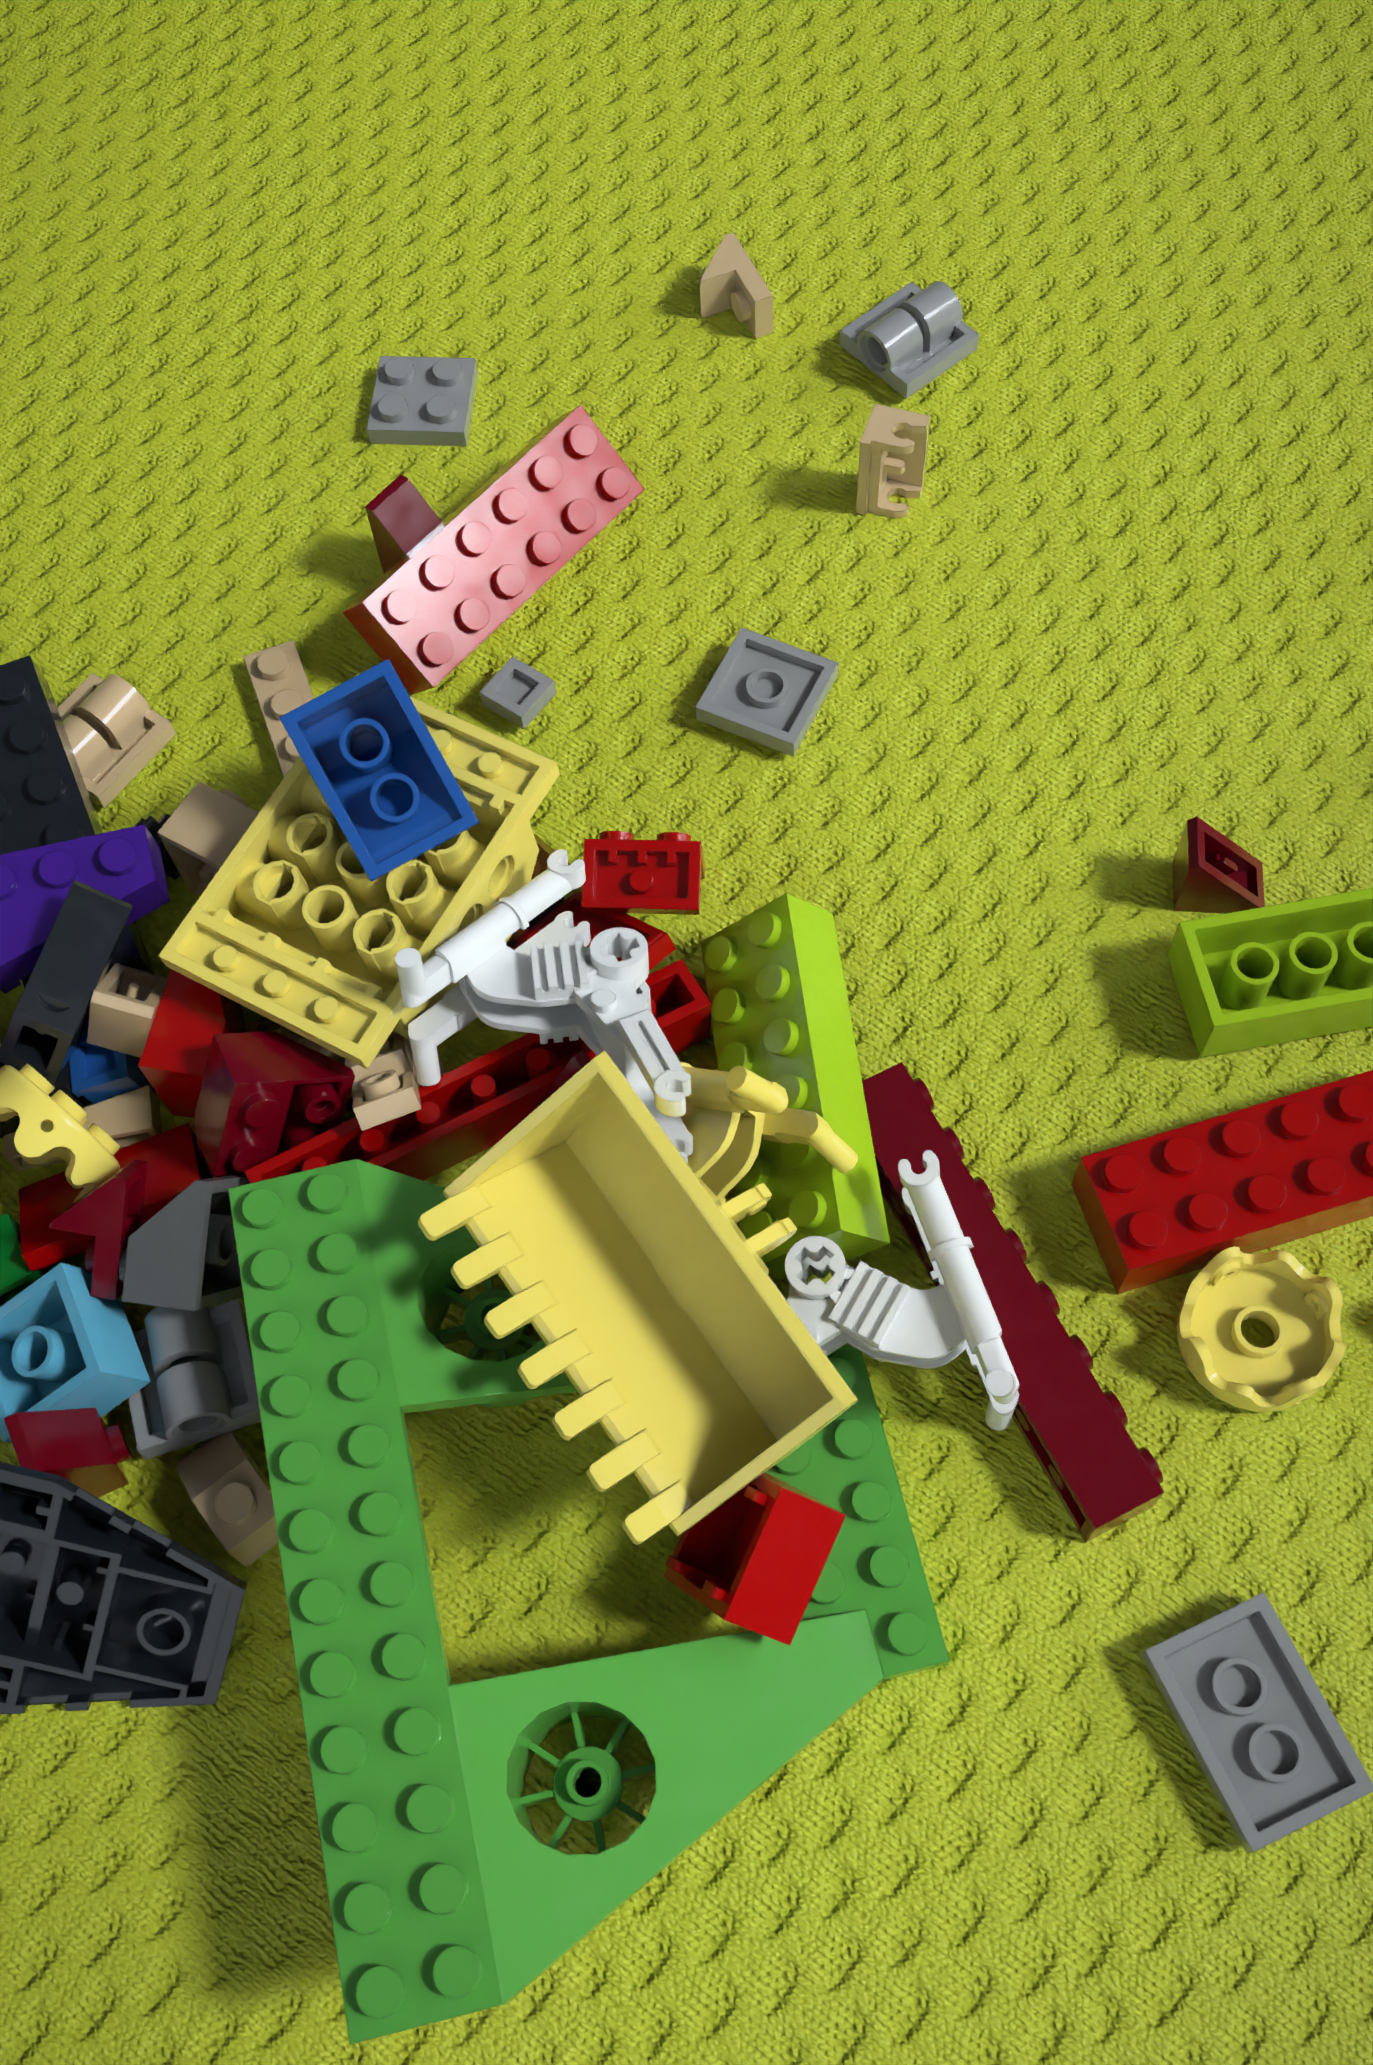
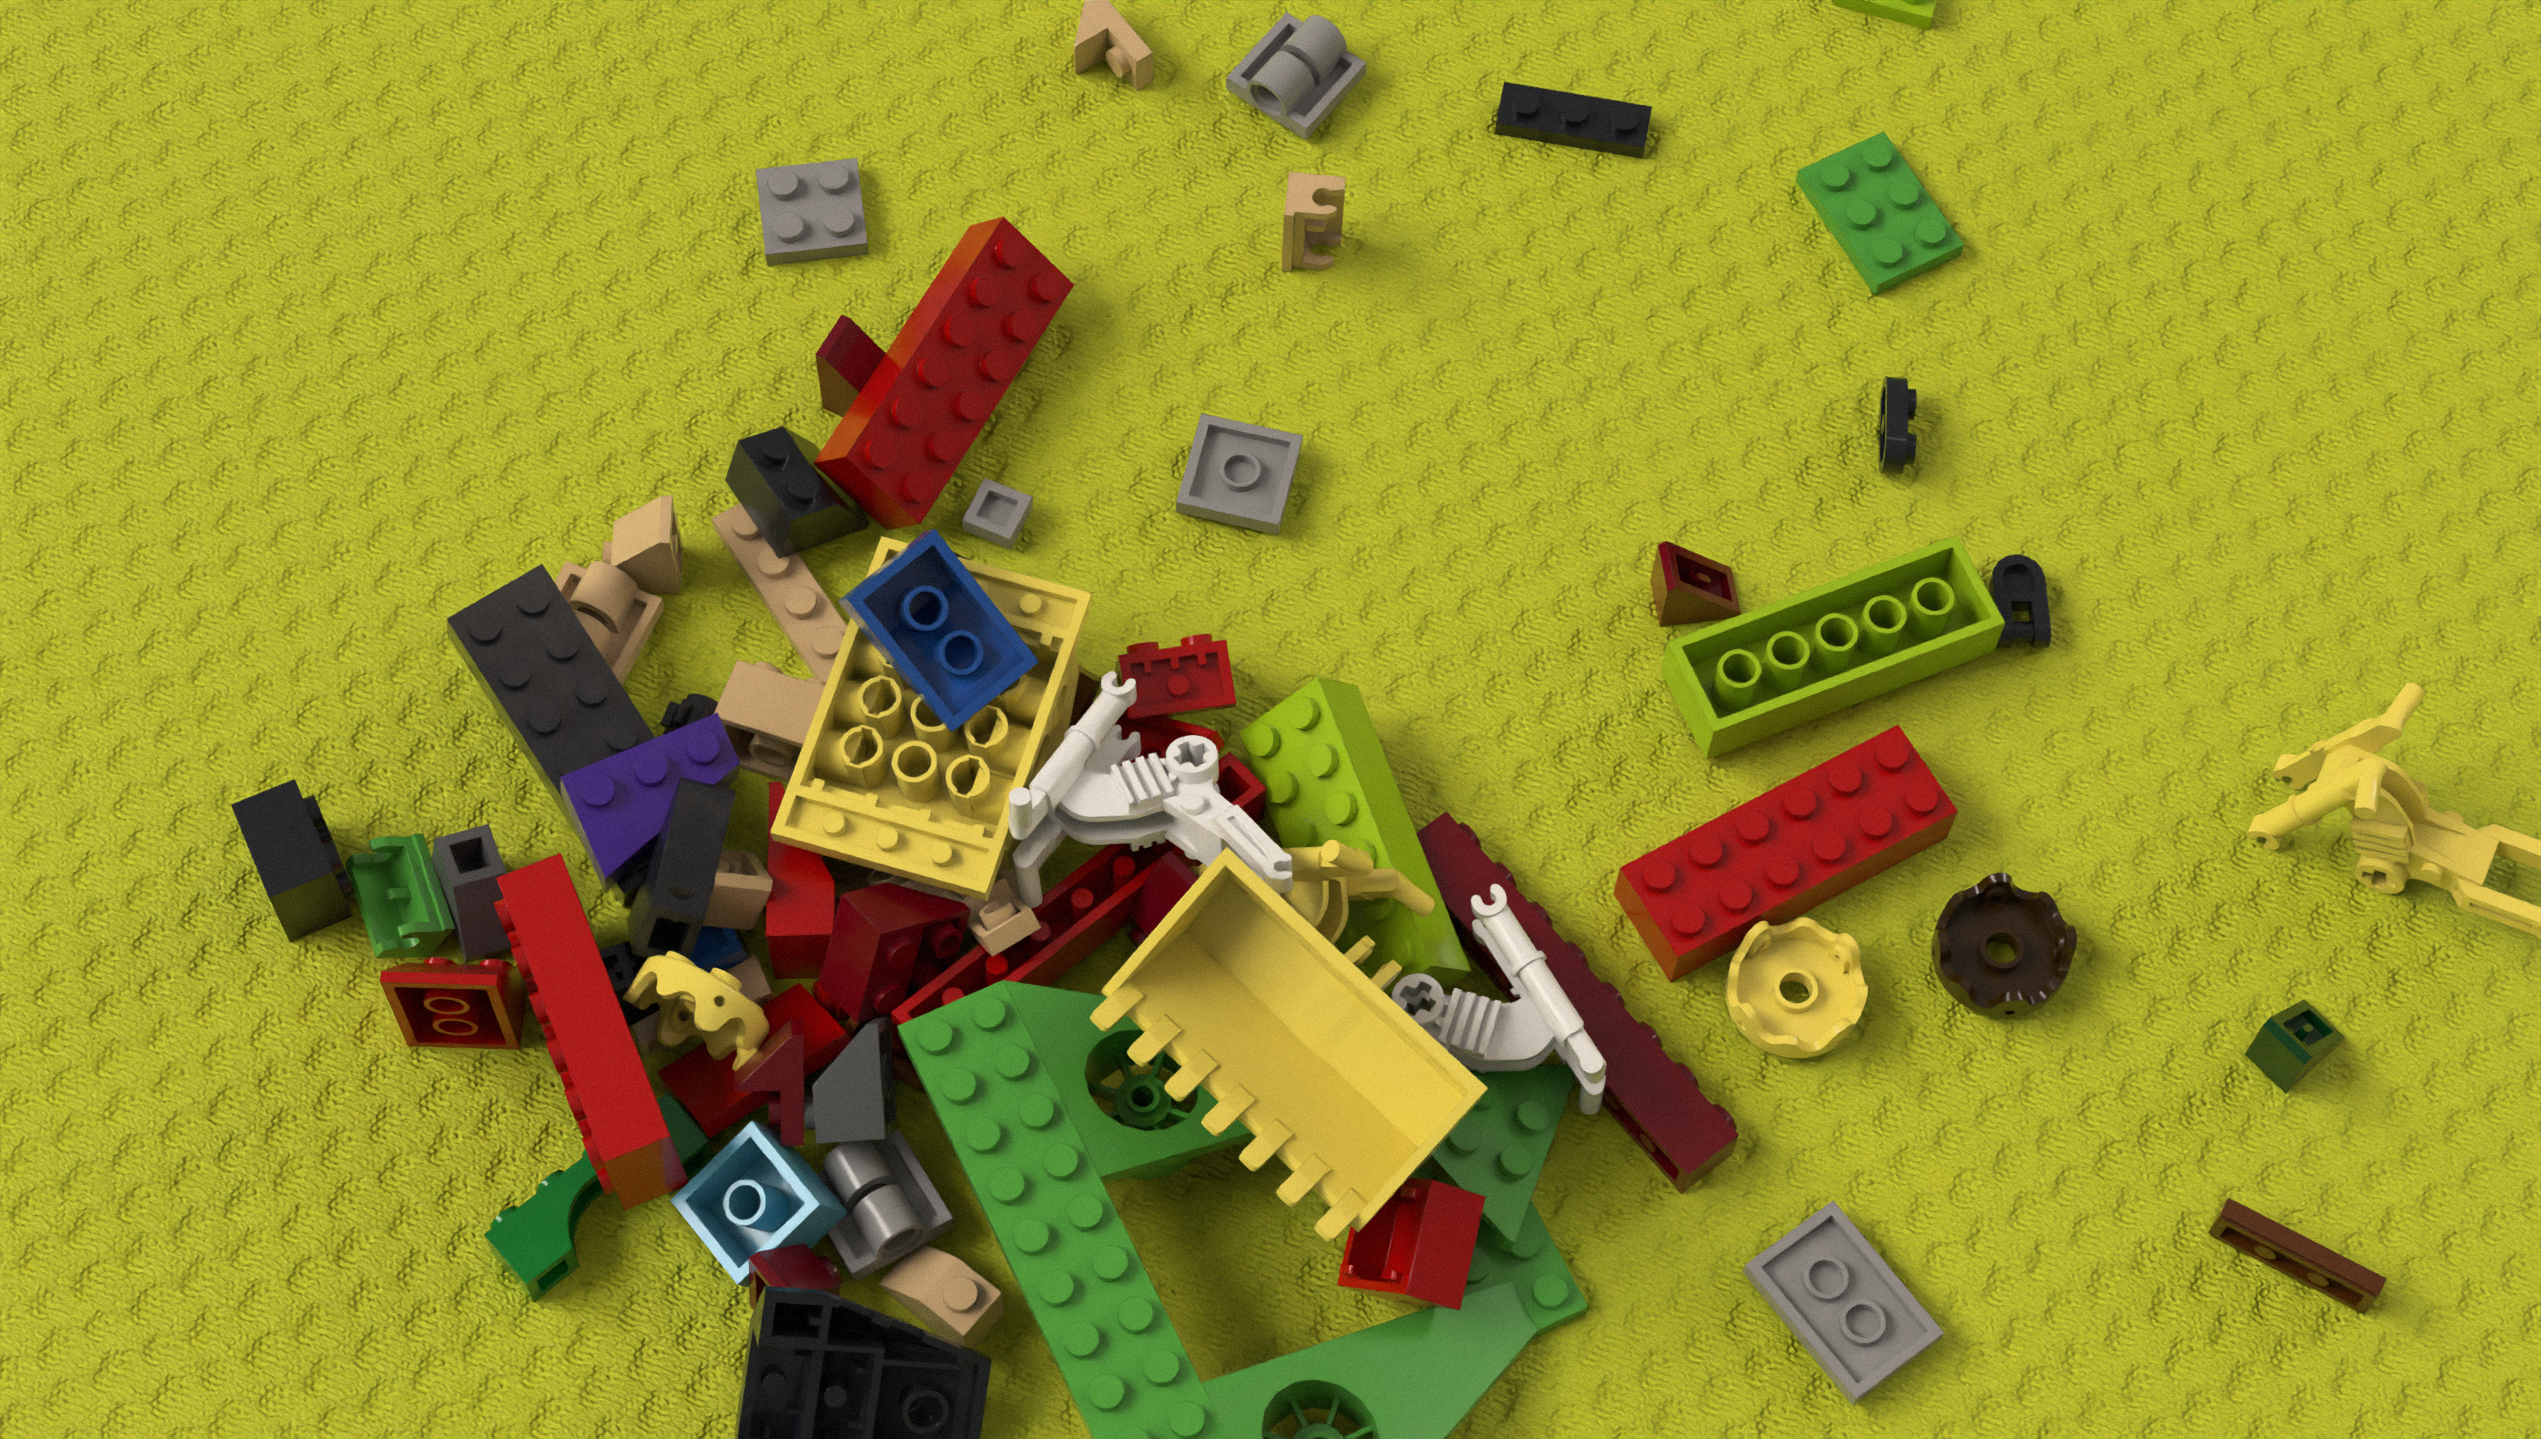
camera: 20 degrees left, 0 degrees up
(172, 671) = (649, 547): none -> tan slope
(312, 636) = (788, 494): none -> black slope
(886, 1446) = (1505, 1143): none -> bright green wing
(1175, 414) = (1573, 120): none -> black plate

